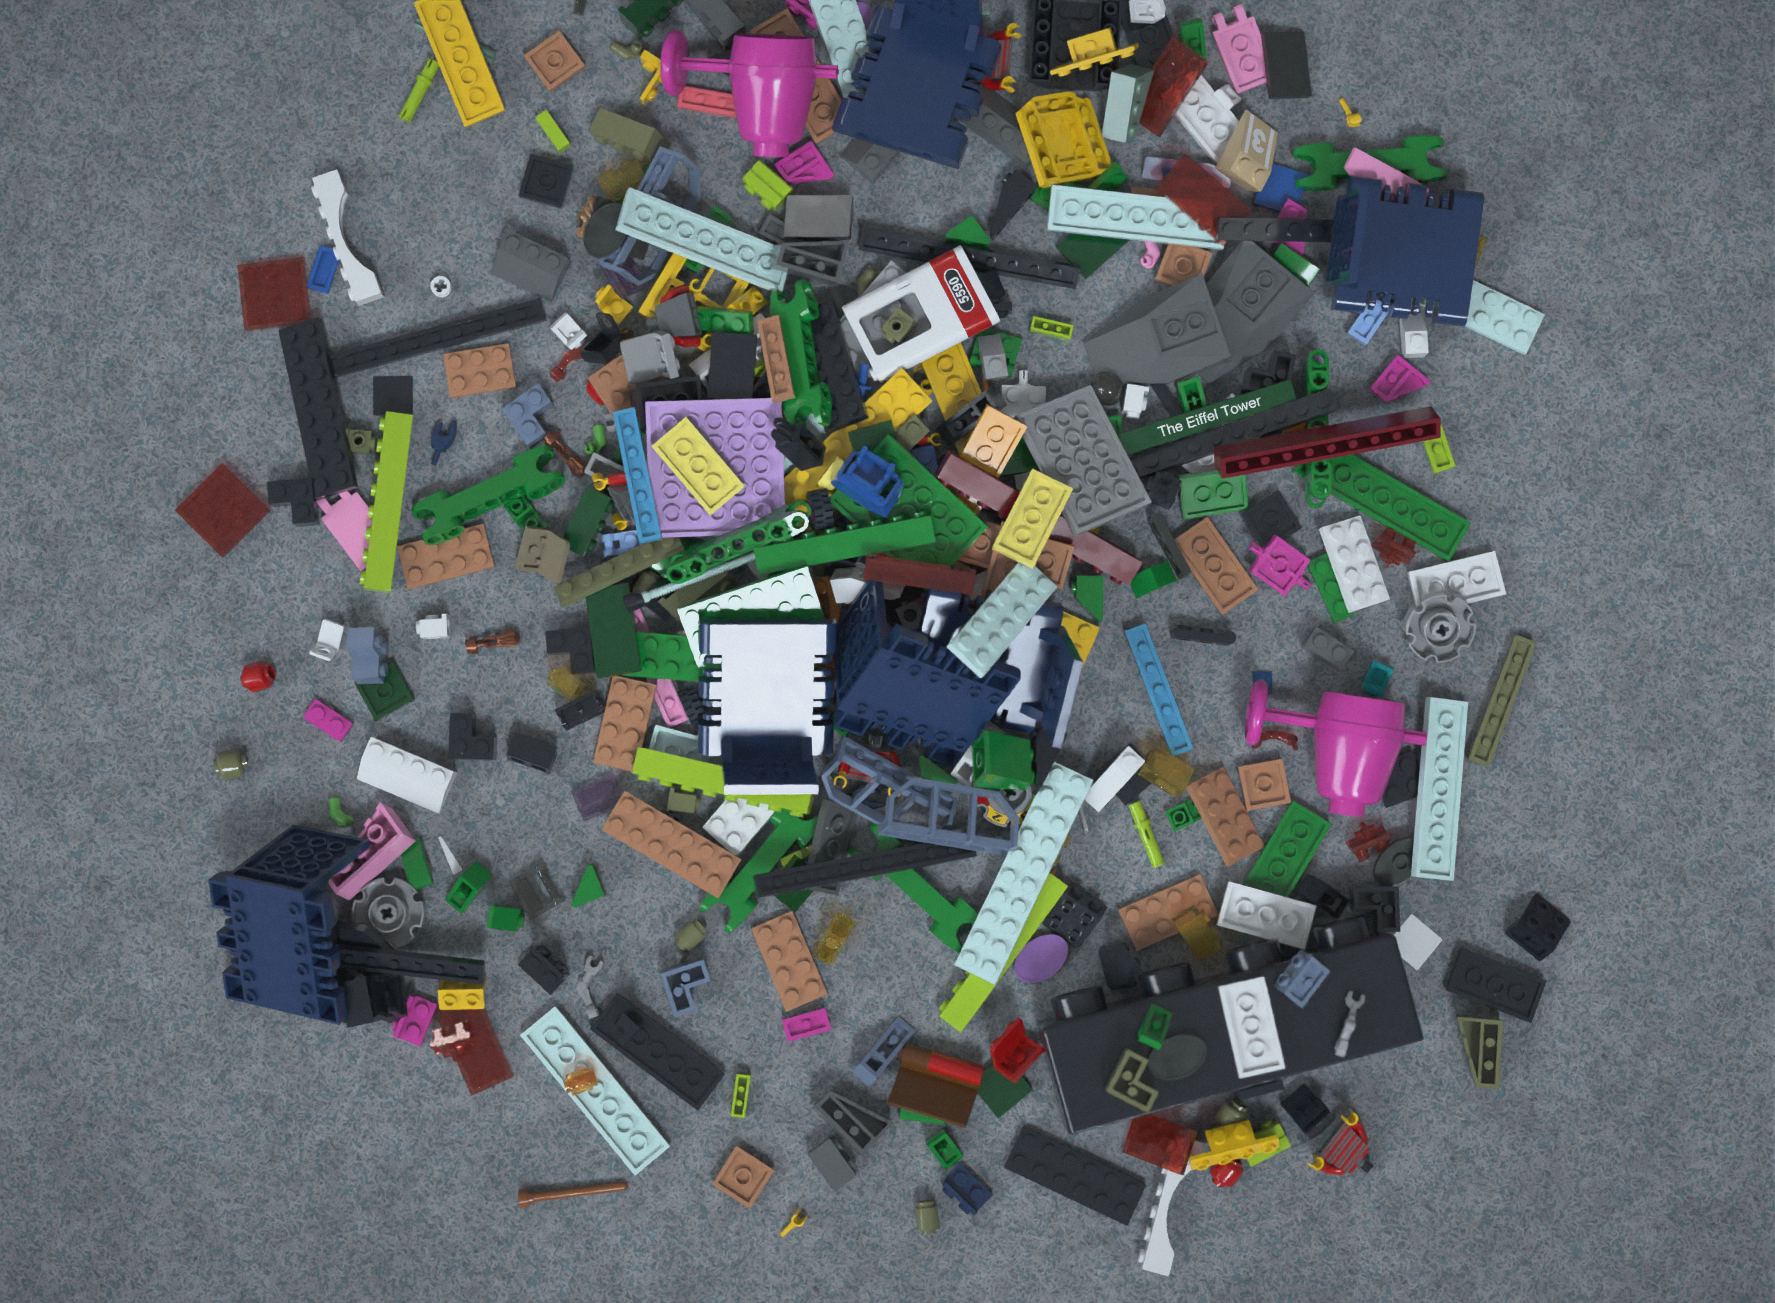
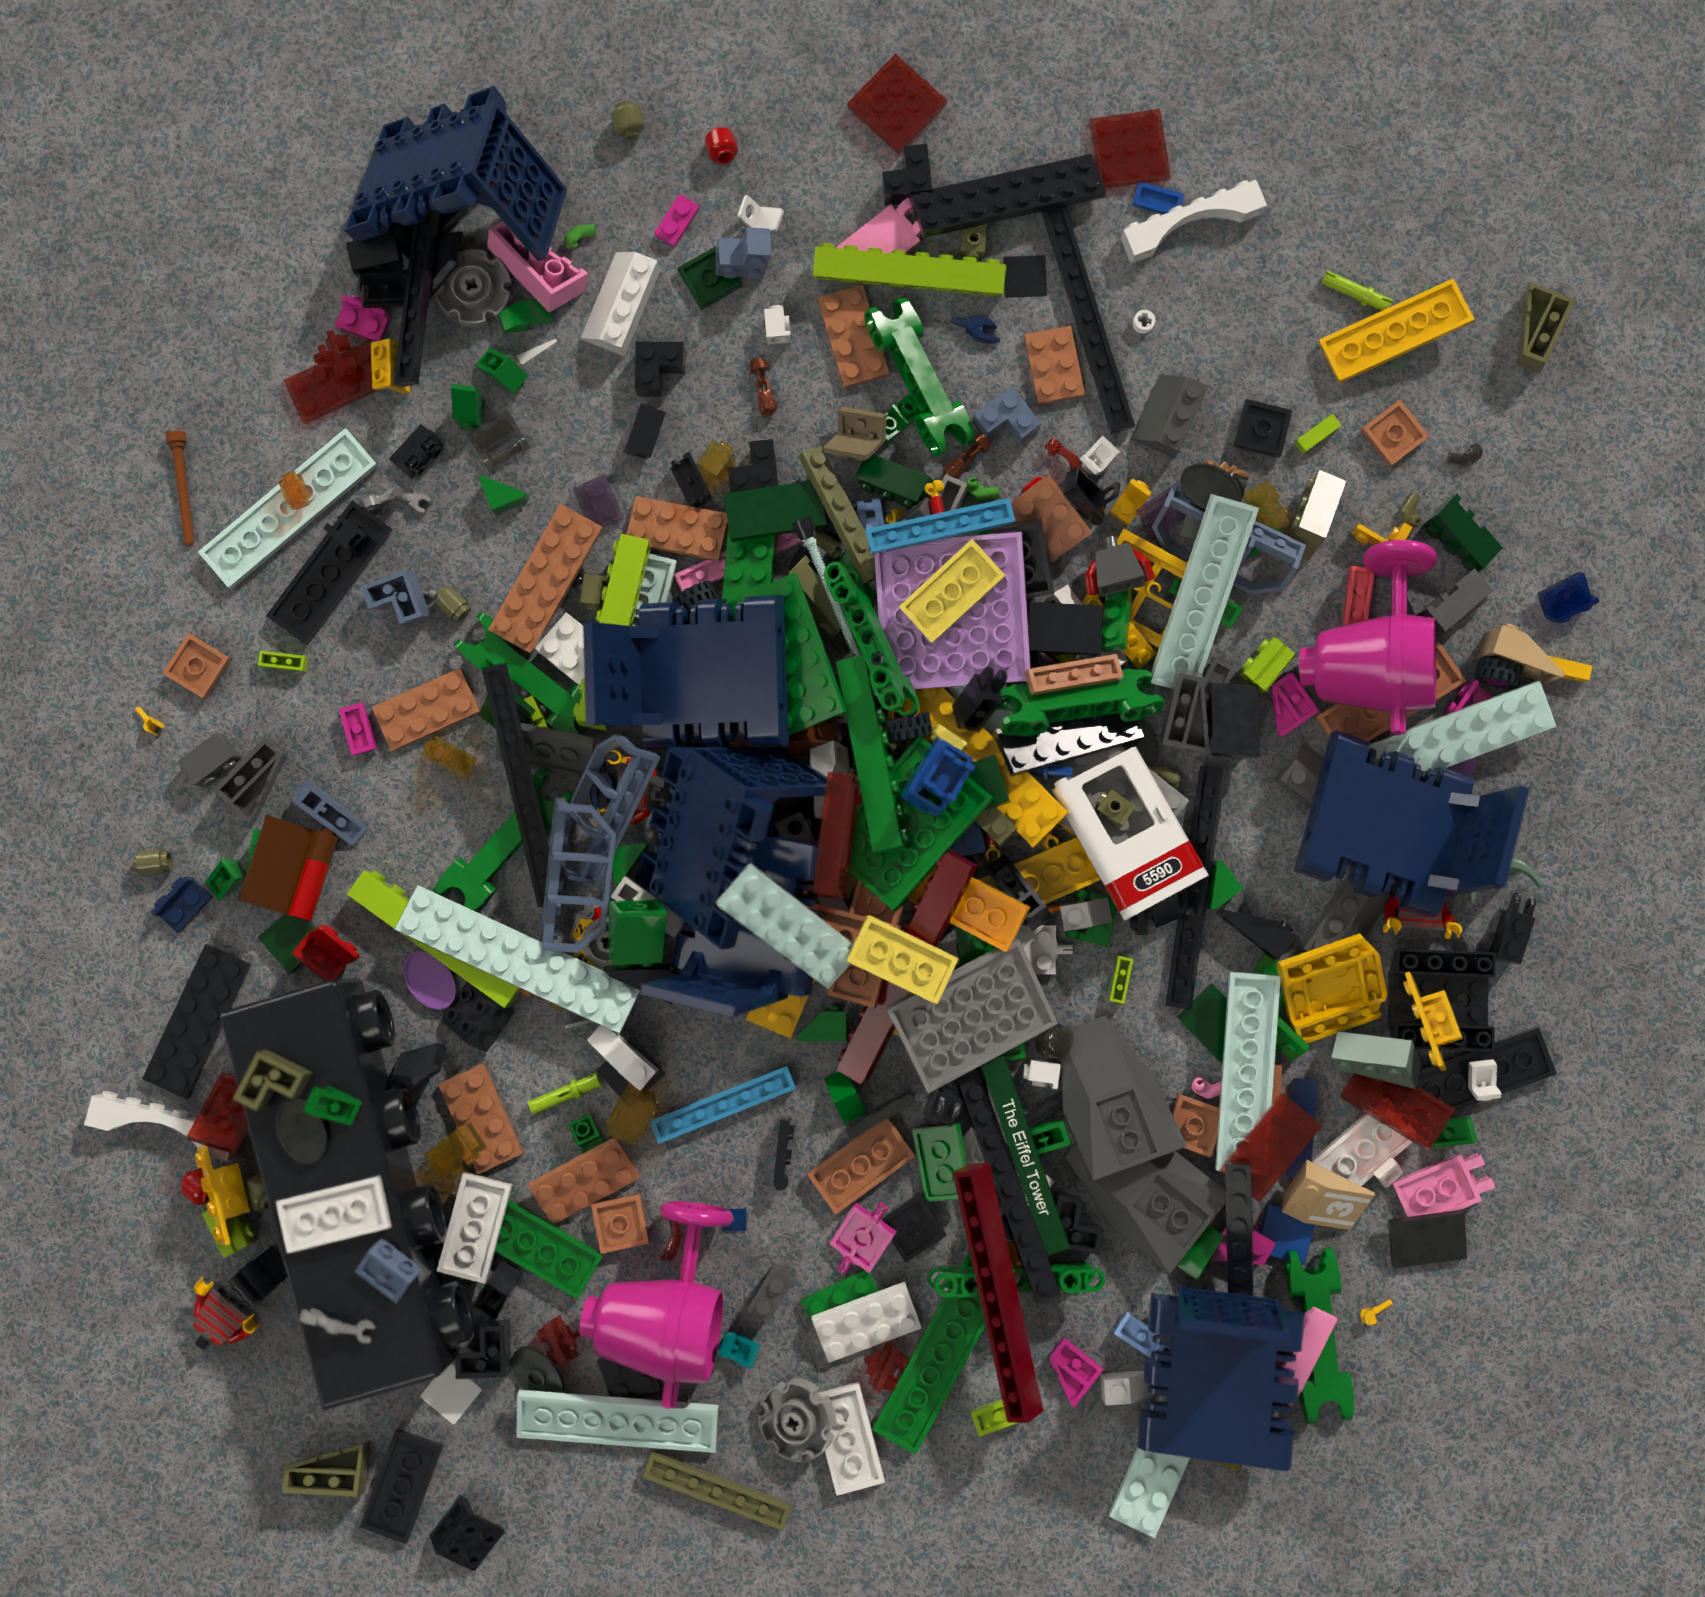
camera: 90 degrees right, 0 degrees up
(649, 357) = (1072, 538): light grey bracket -> none

